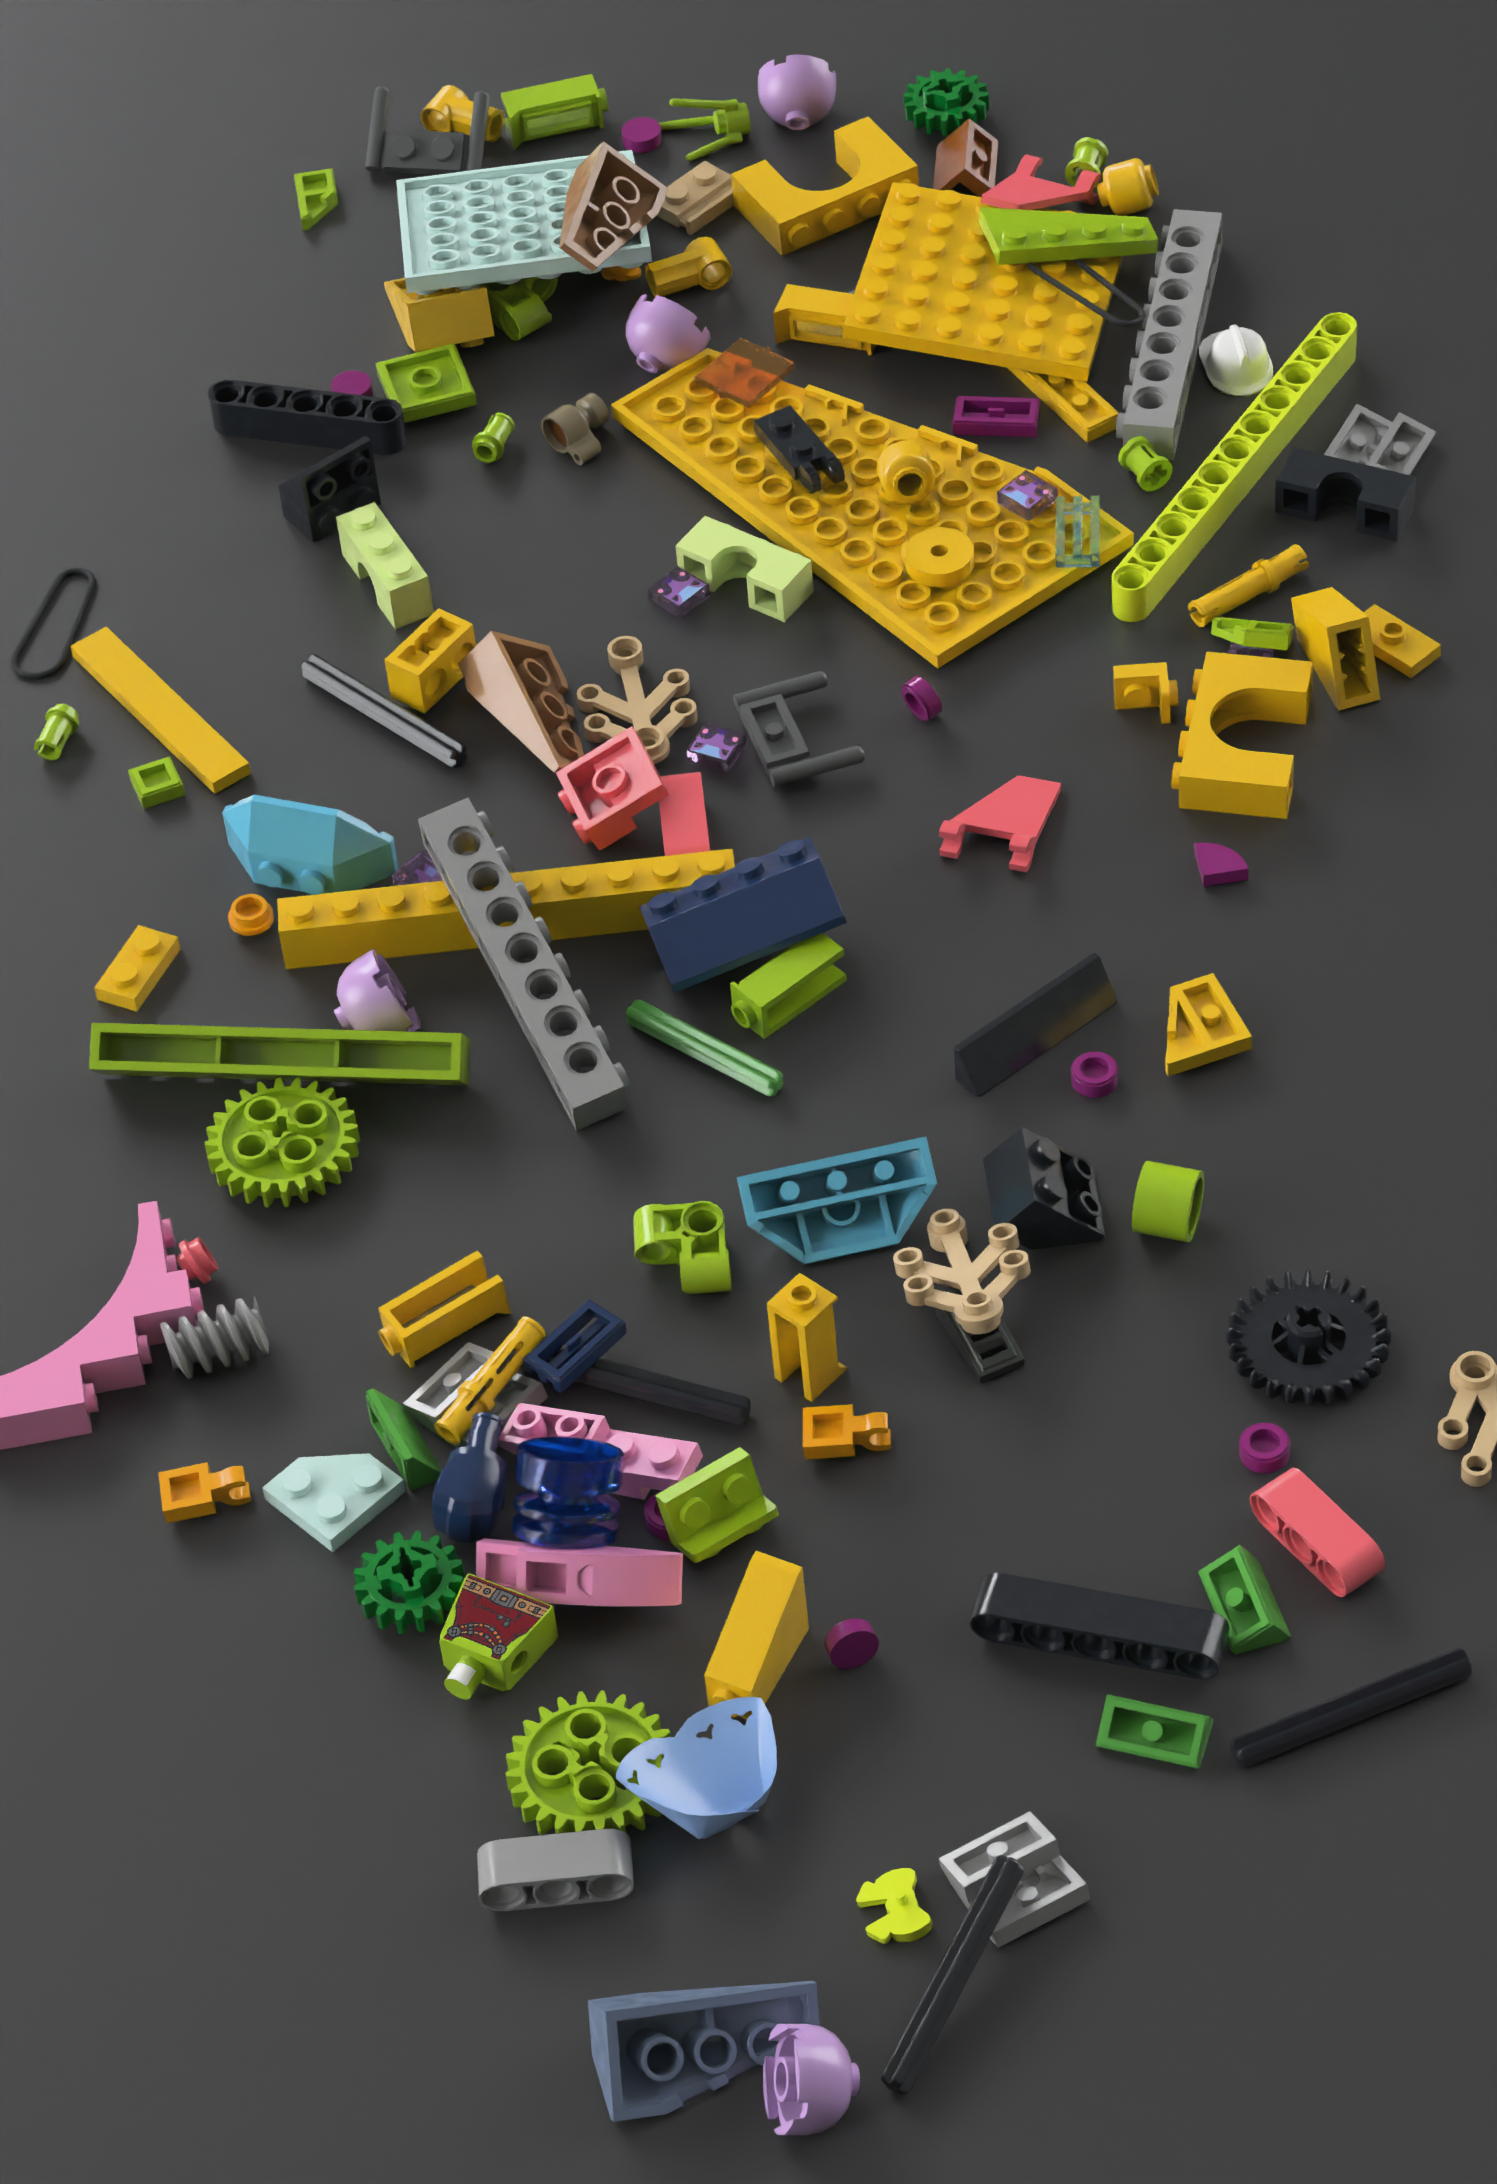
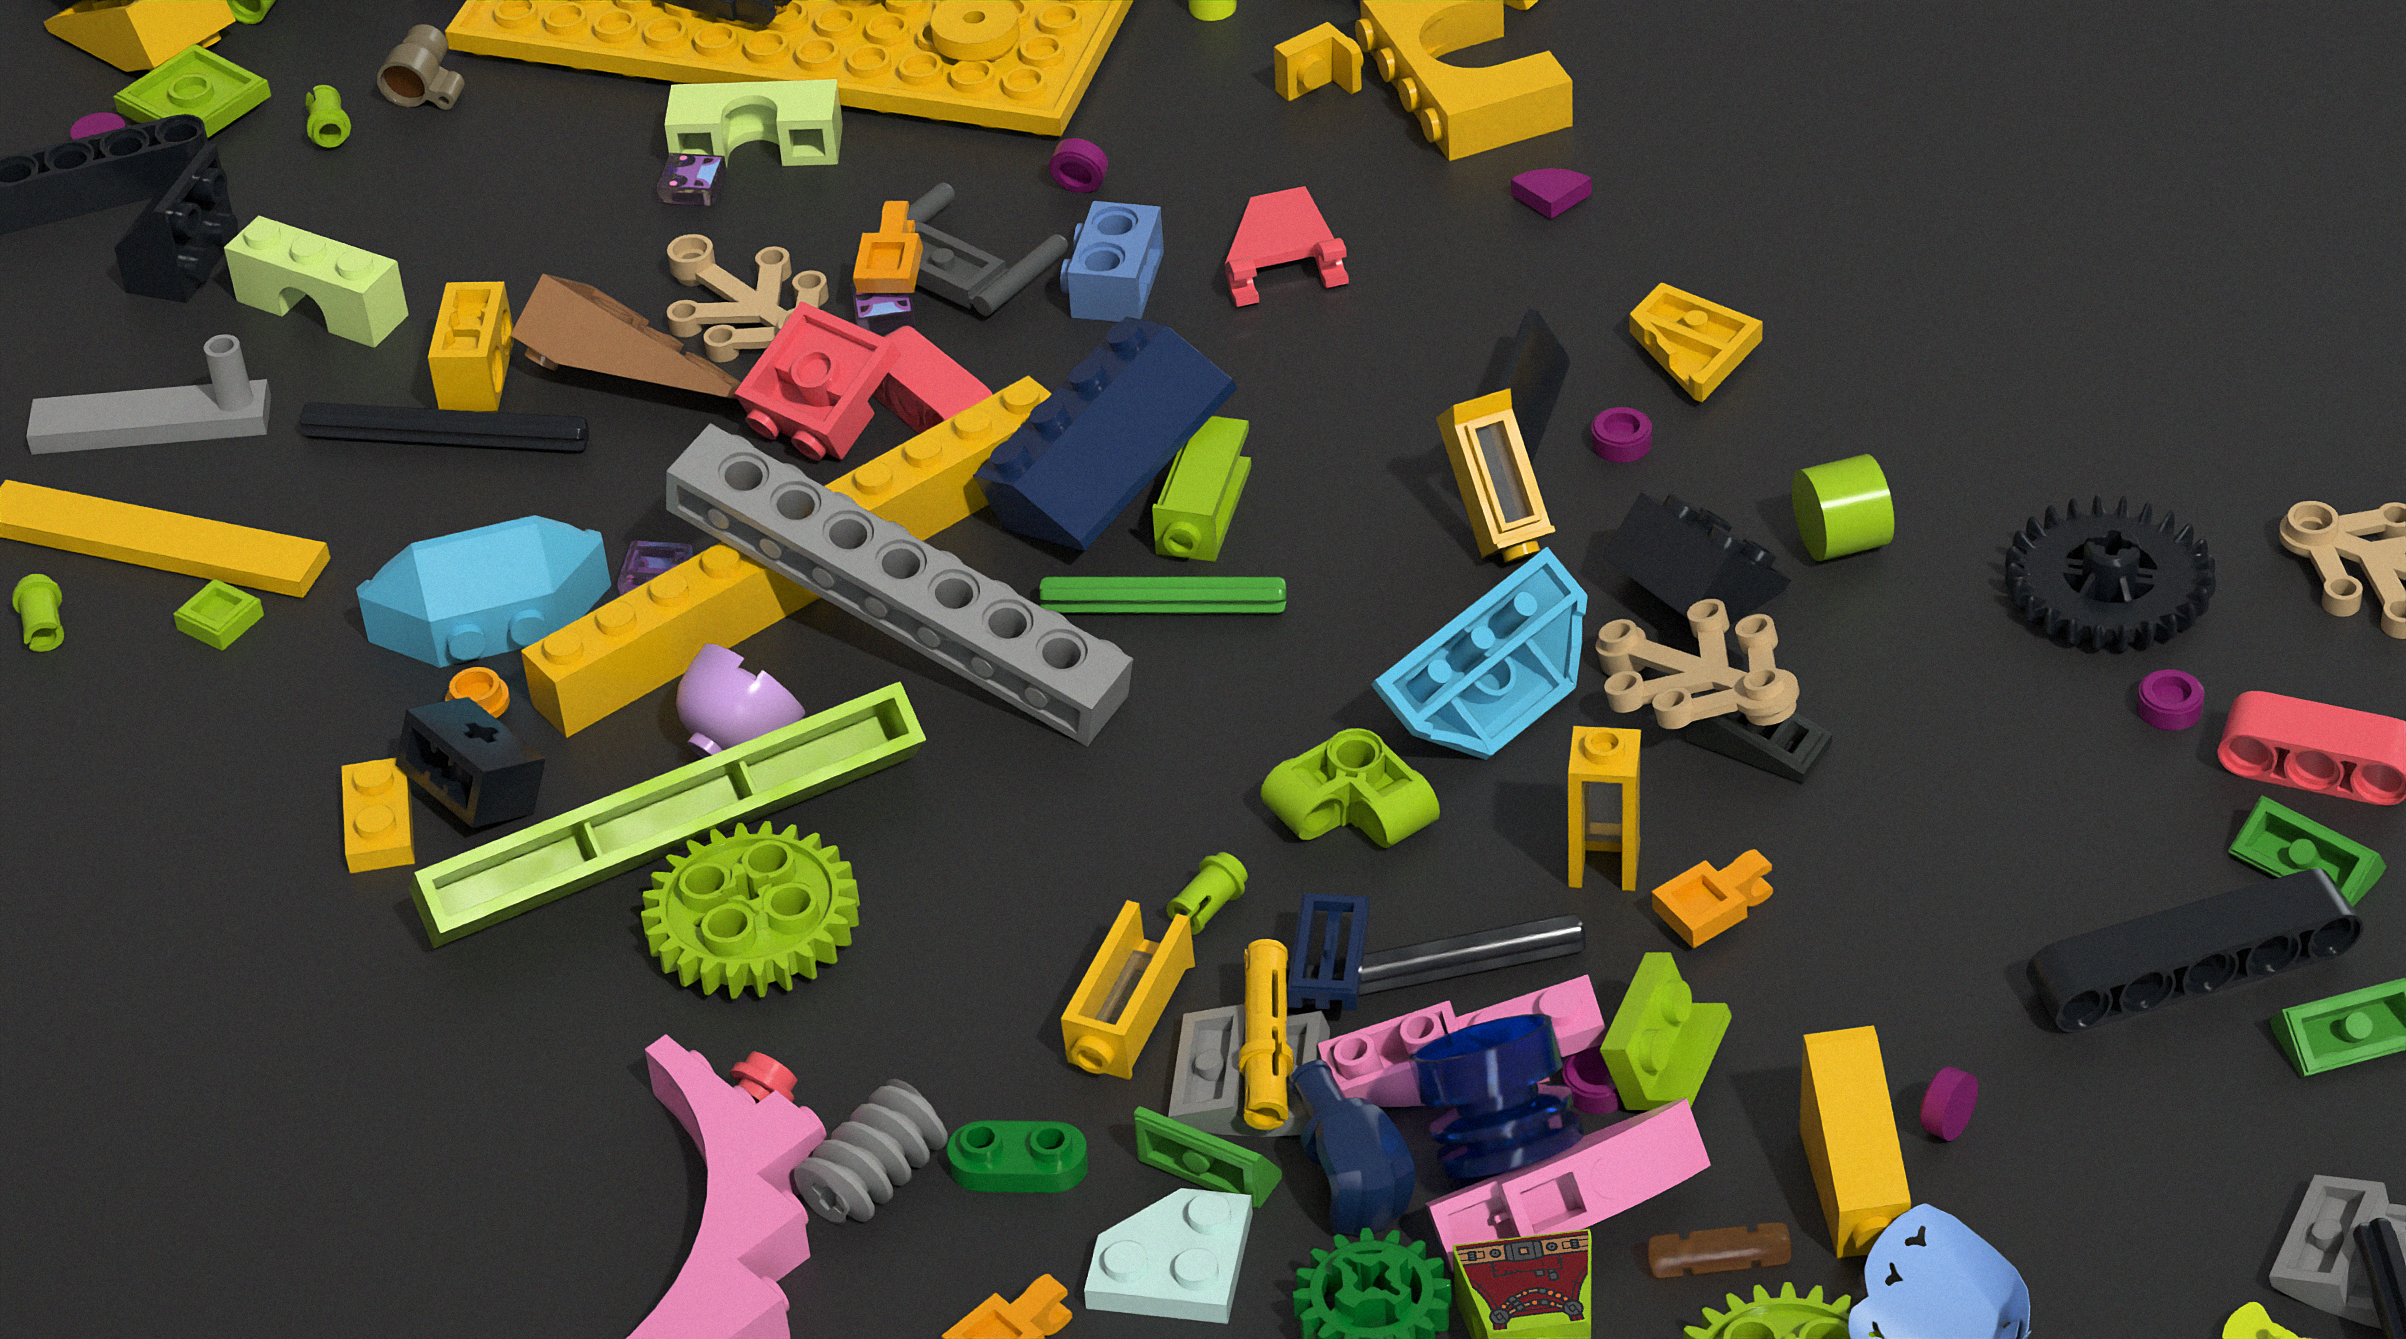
camera: 35 degrees left, 5 degrees down
(203, 960) = (470, 761): none -> black brick
(254, 629) = (157, 415): none -> light grey piece
(293, 1380) = (1017, 1156): none -> green plate
(553, 1268) = (1219, 880): none -> lime pin
(637, 1661) = (1719, 1249): none -> clear orange axle
(734, 715) = (889, 258): none -> light orange plate
(880, 785) = (1113, 261): none -> medium blue brick
(956, 1068) = (1495, 476): none -> yellow window

